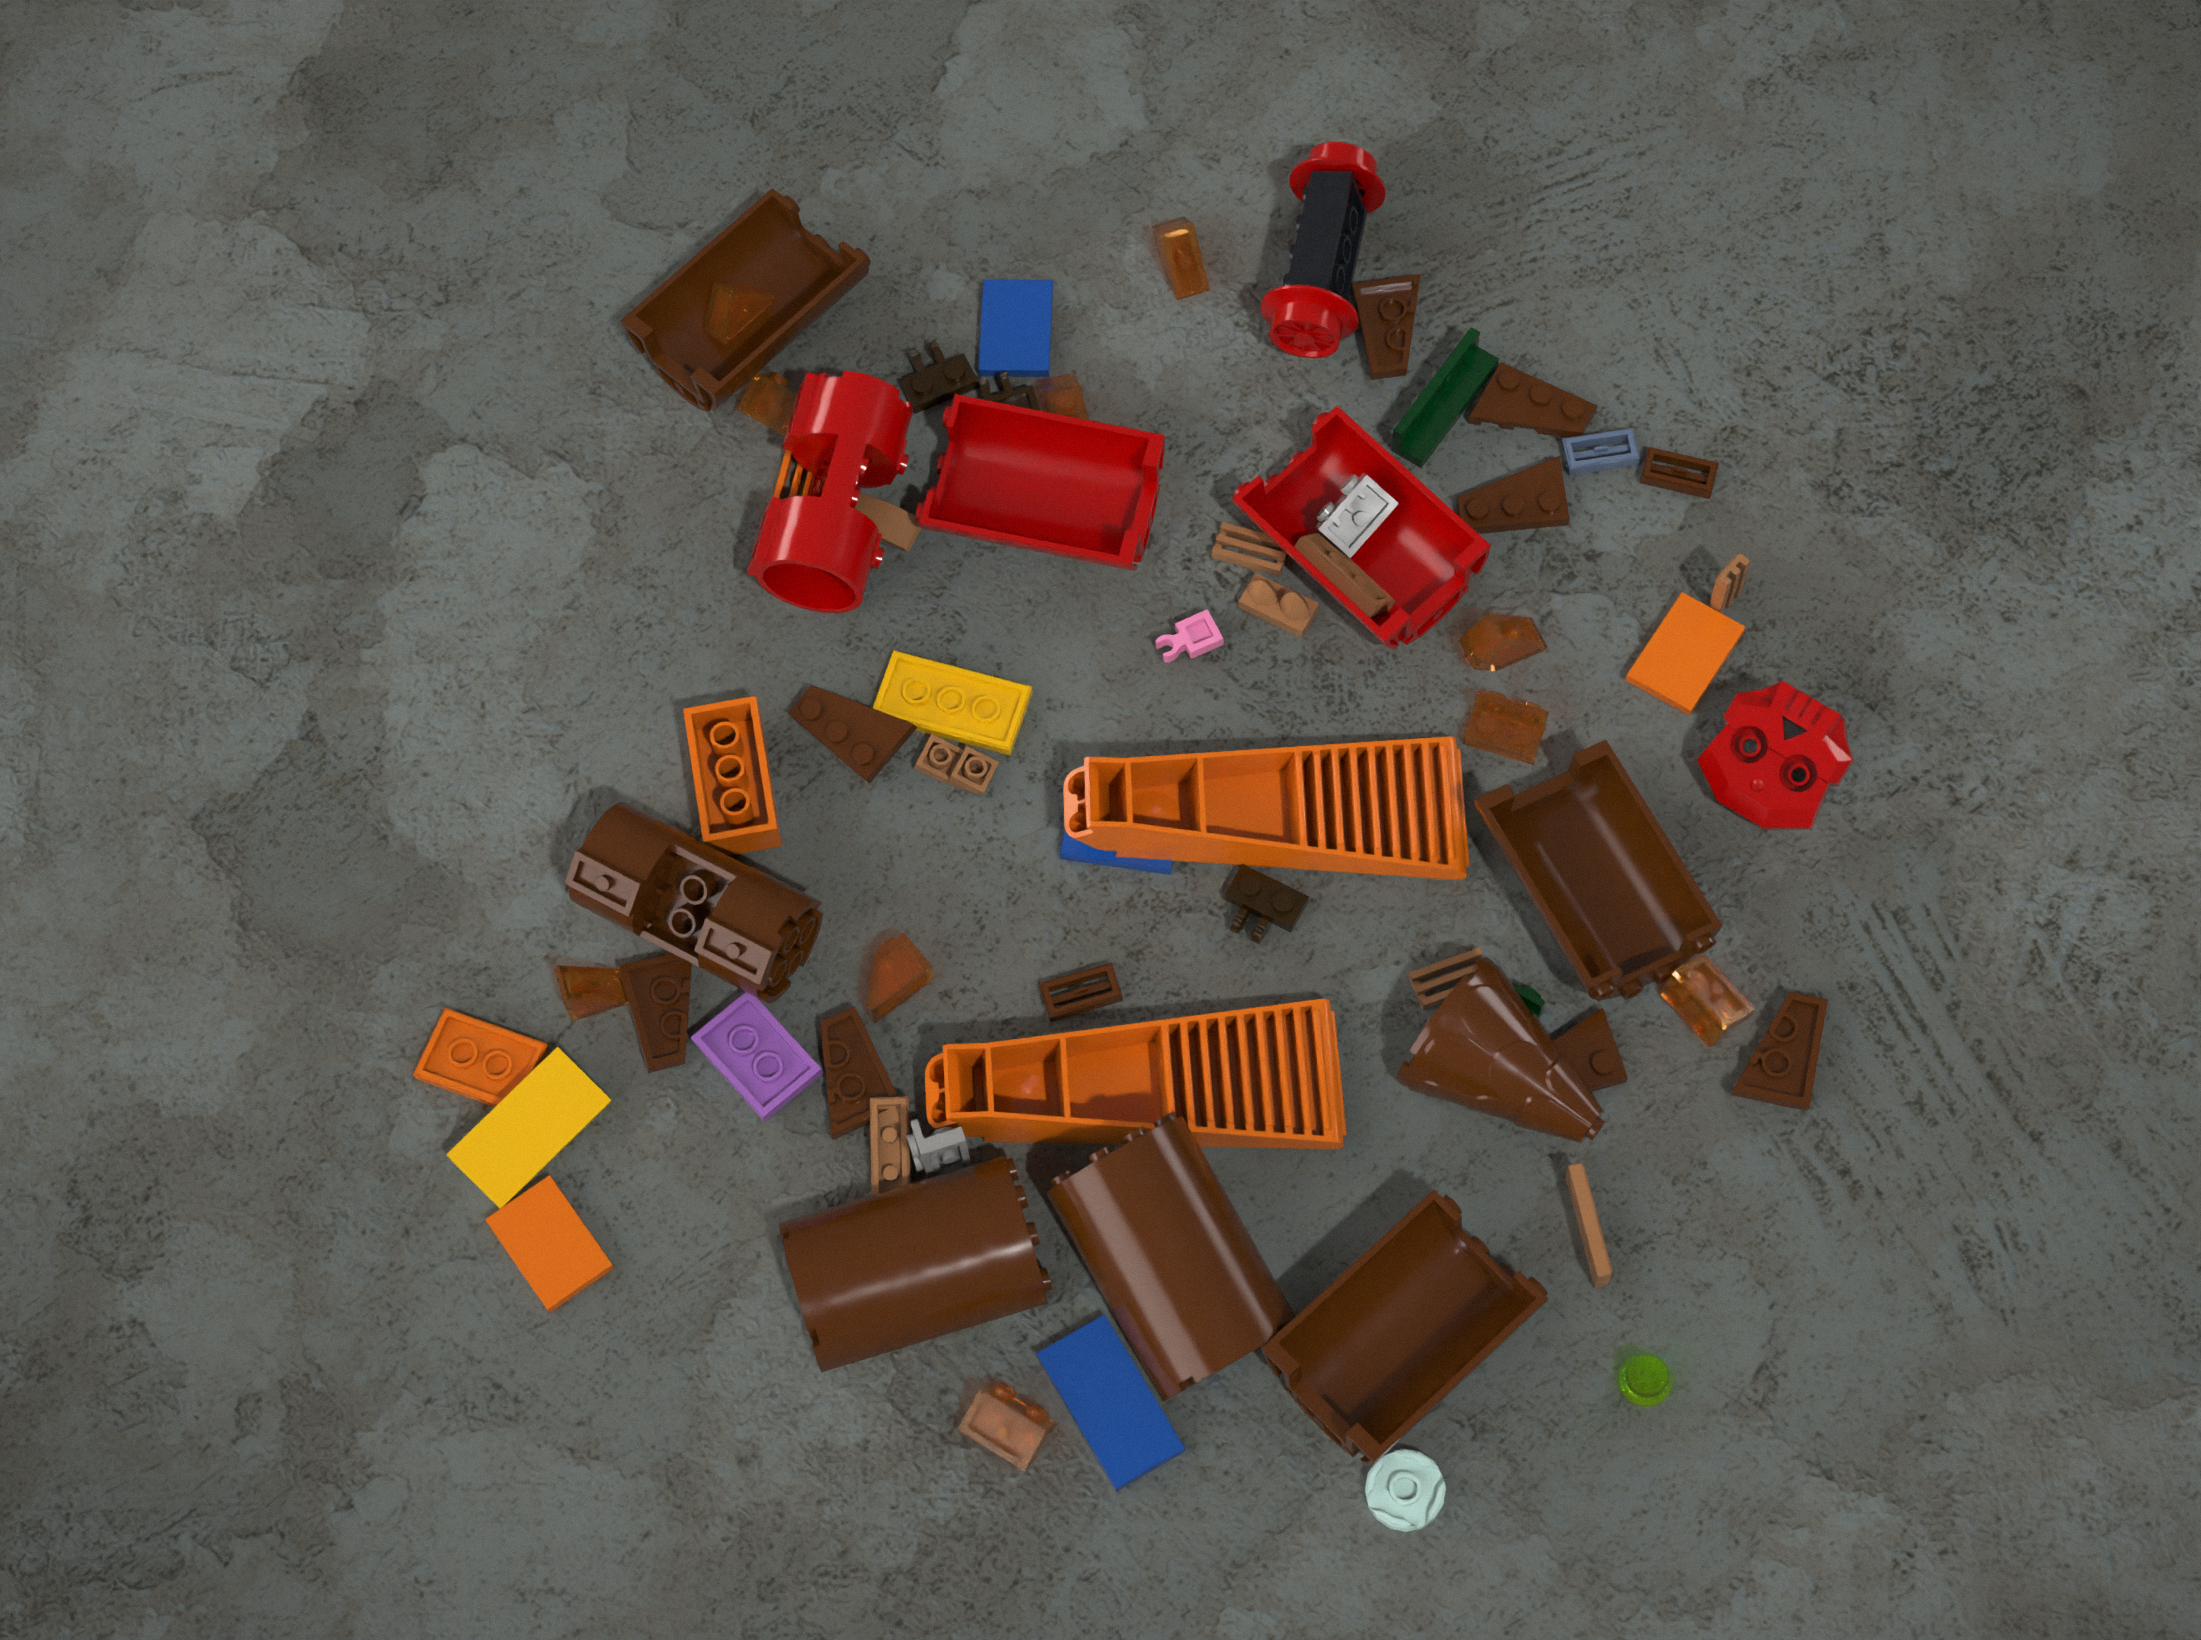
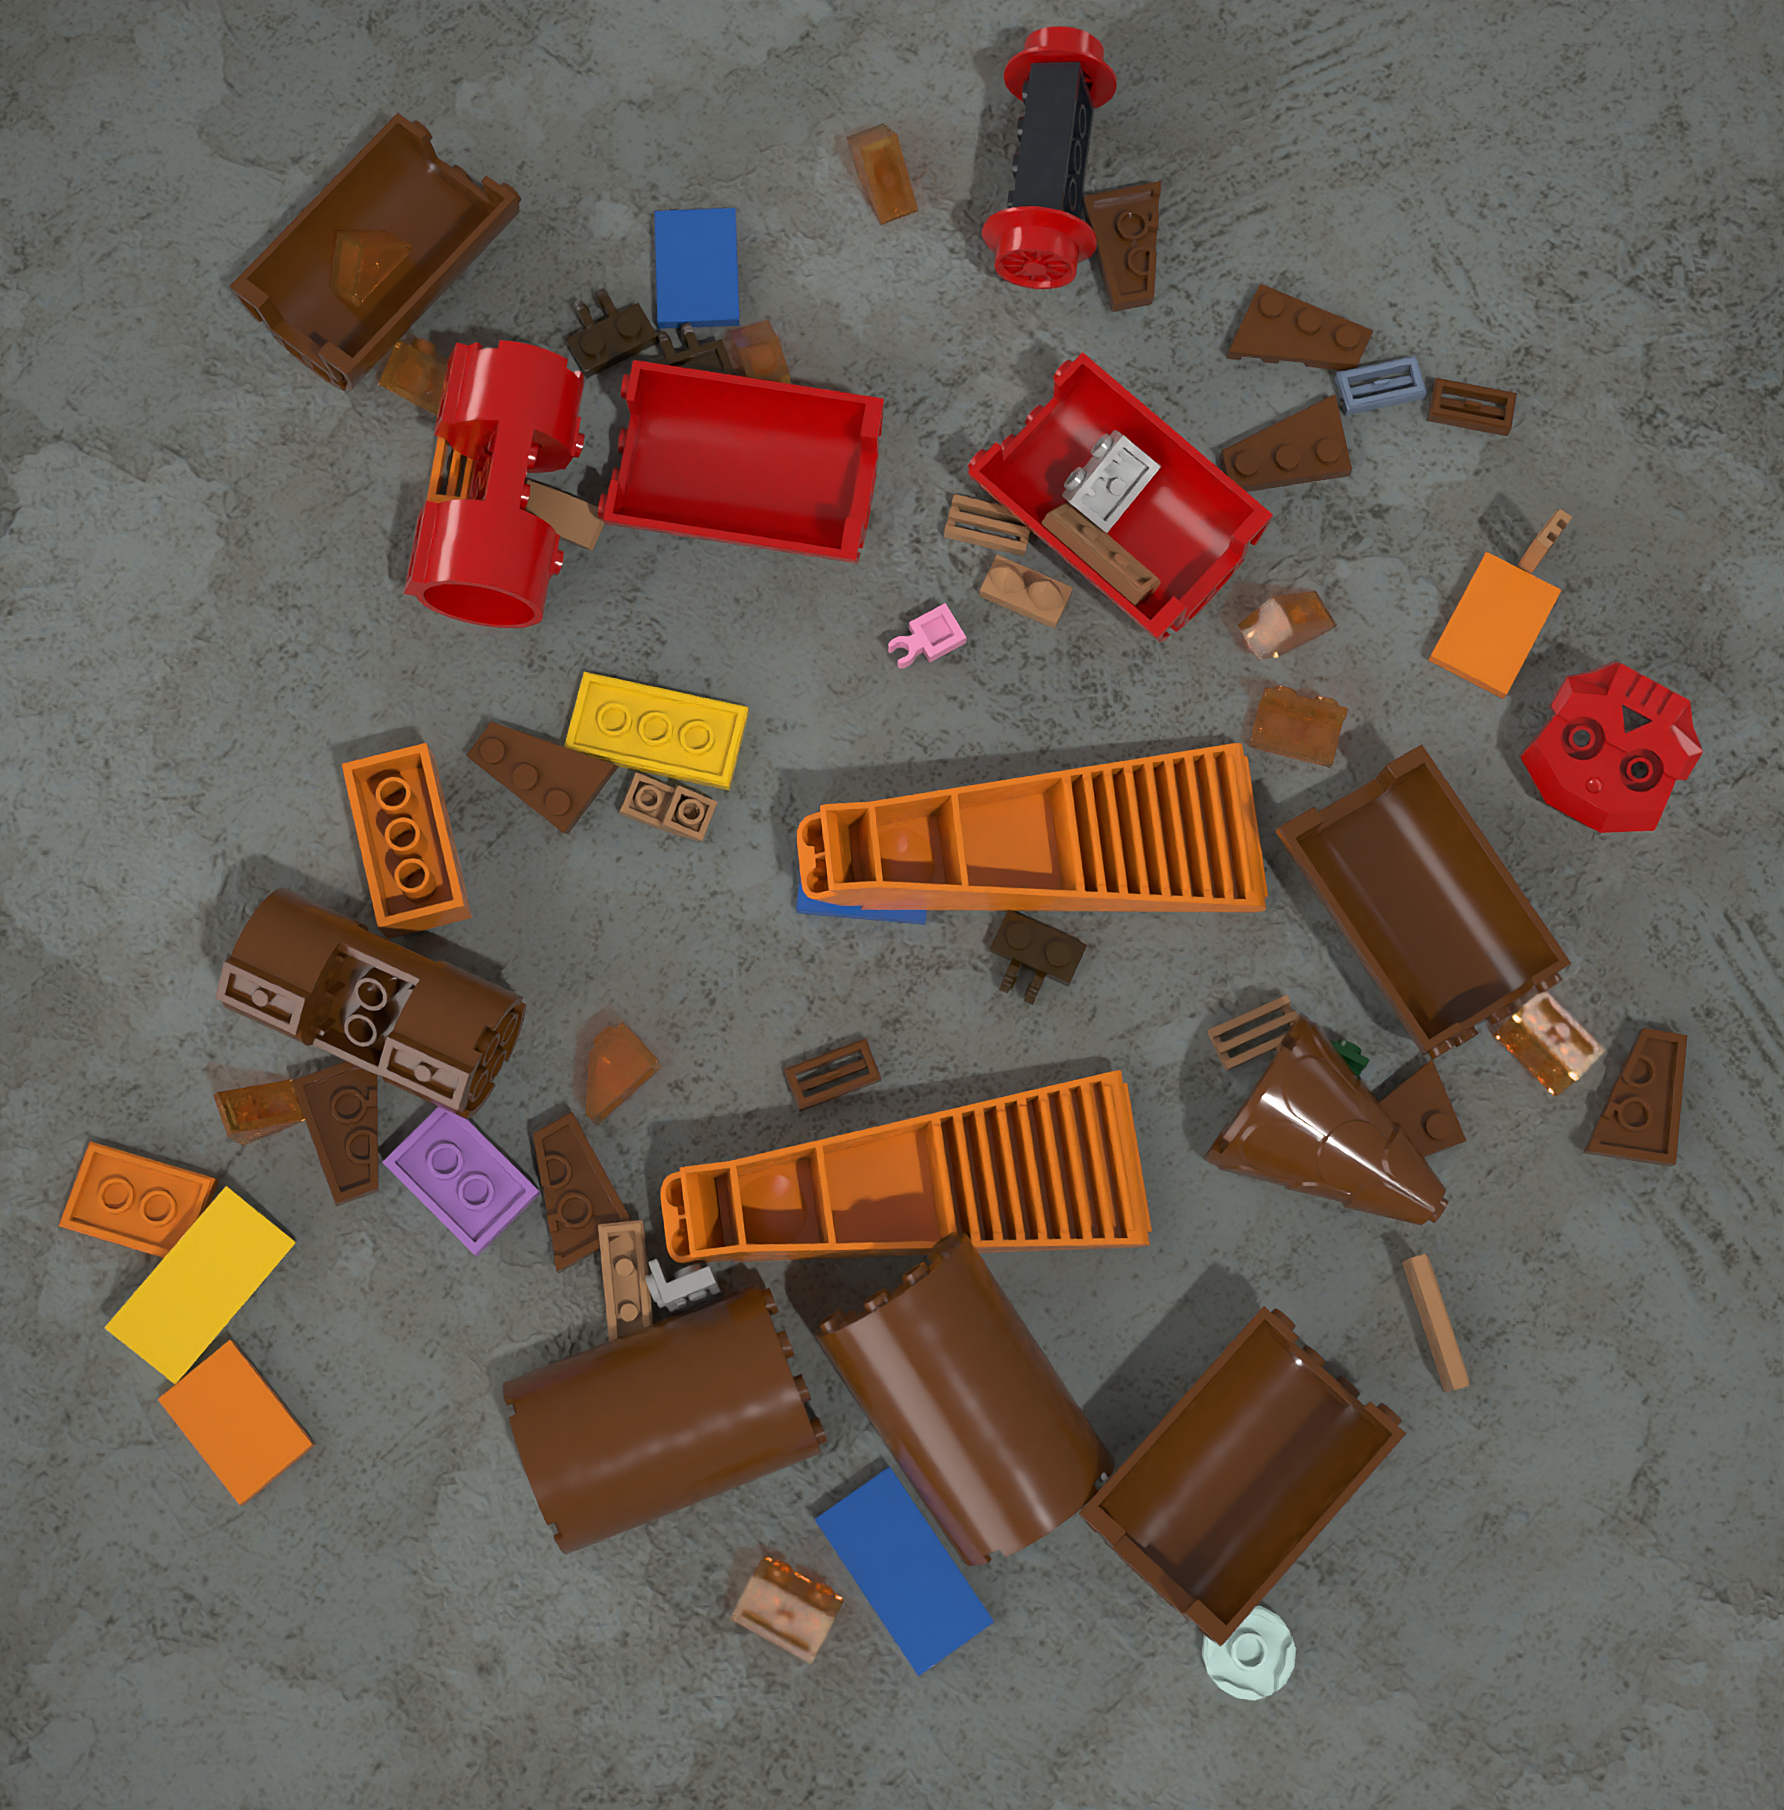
camera: 10 degrees left, 10 degrees up
(1443, 400) = (1198, 334): dark green fence -> none
(1641, 1389) = (1513, 1514): clear neon green cone -> none

